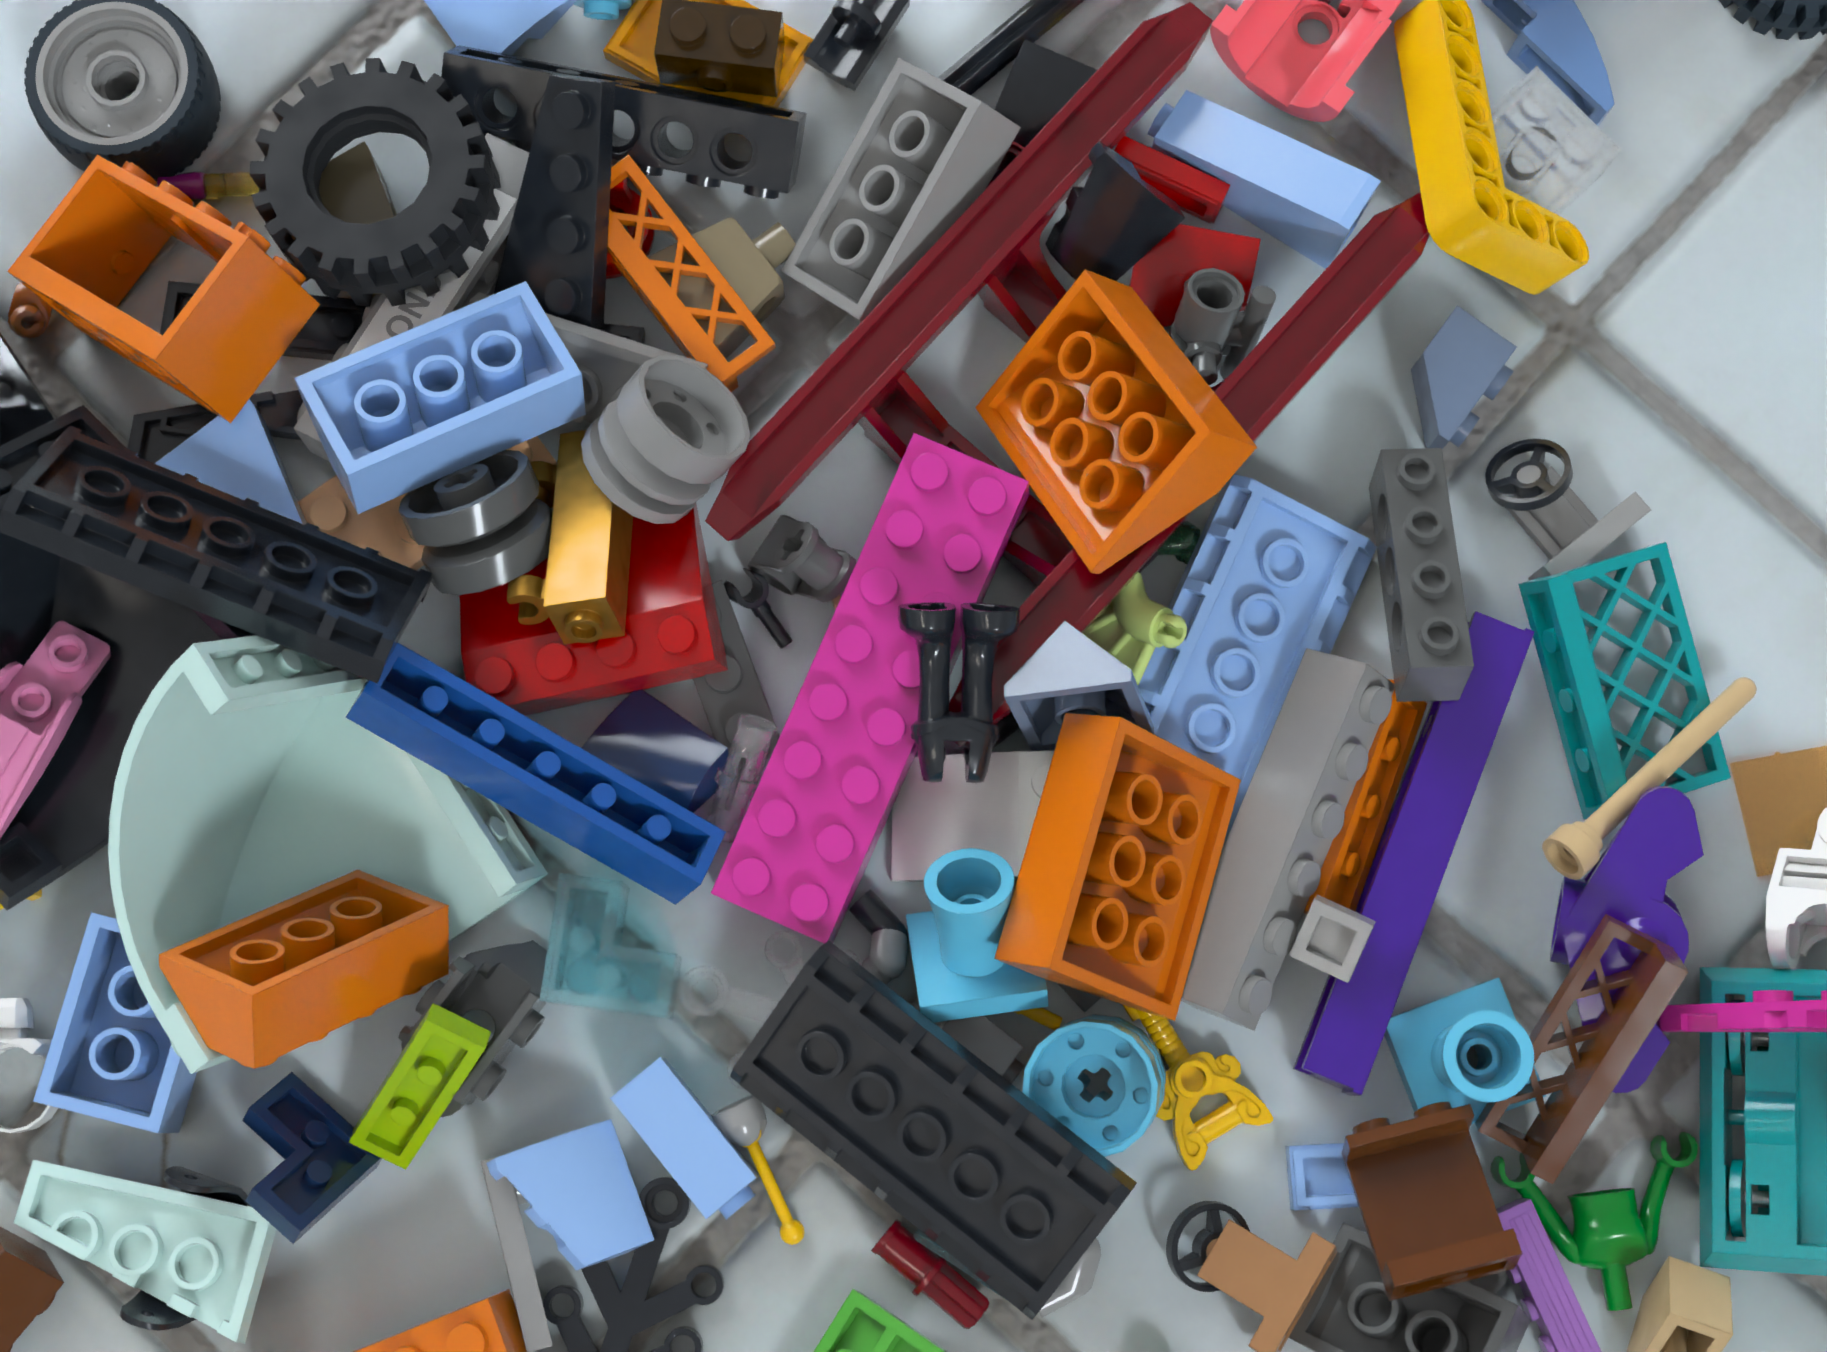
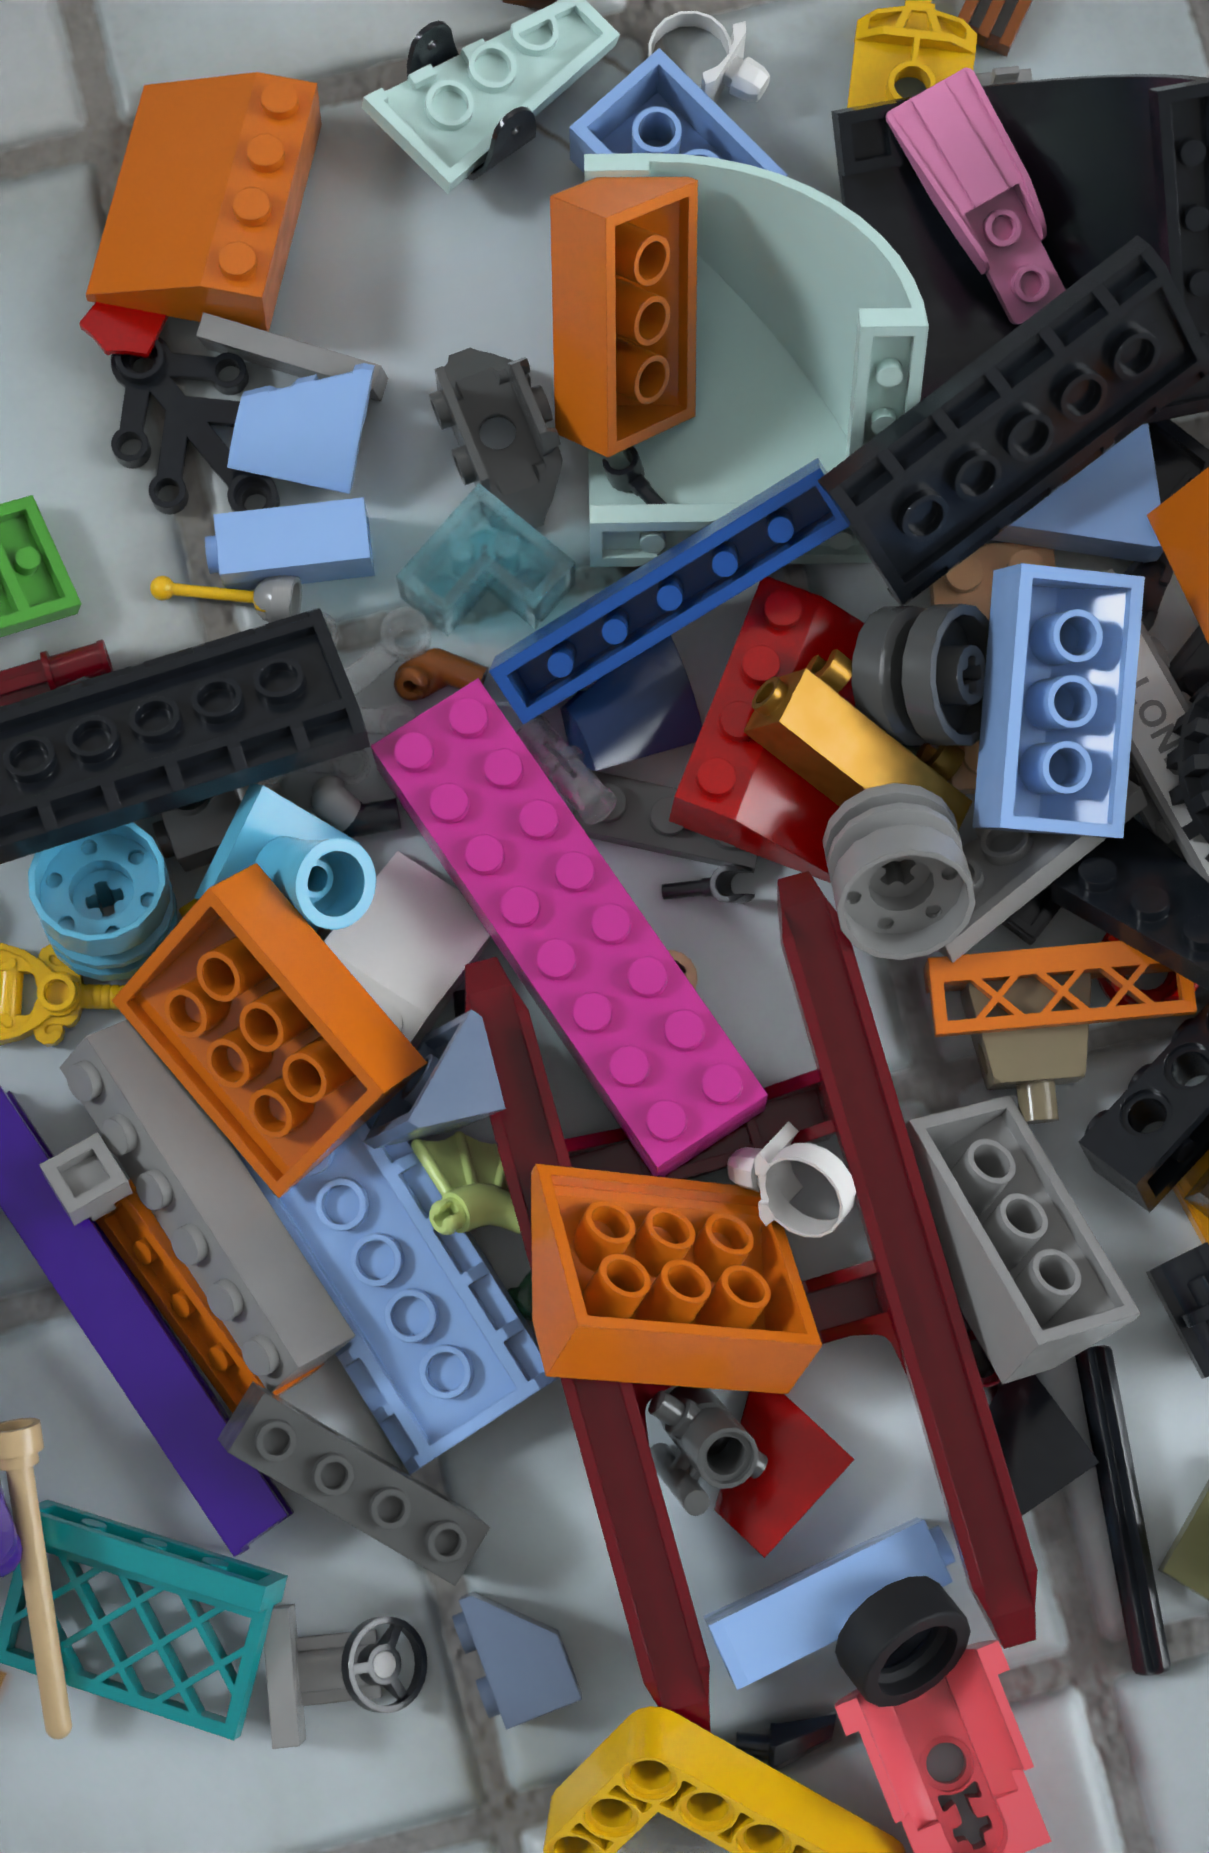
camera: 125 degrees right, 0 degrees up
(317, 1154) = (473, 253): dark blue plate -> none
(420, 1086) = (473, 351): lime plate -> none
(450, 876) = (632, 478): none -> black hand
(718, 948) = (433, 672): none -> dark orange arm
(801, 562) = (725, 943): dark grey piece -> none
(967, 399) = (772, 1175): none -> white piece
(981, 631) = (546, 1035): black piece -> none
(1111, 219) = (862, 1417): black slope -> none
(1188, 187) = (878, 1513): red tile -> none
(1258, 92) = (902, 1641): none -> black tyre
(1378, 153) = (787, 1740): none -> black bar

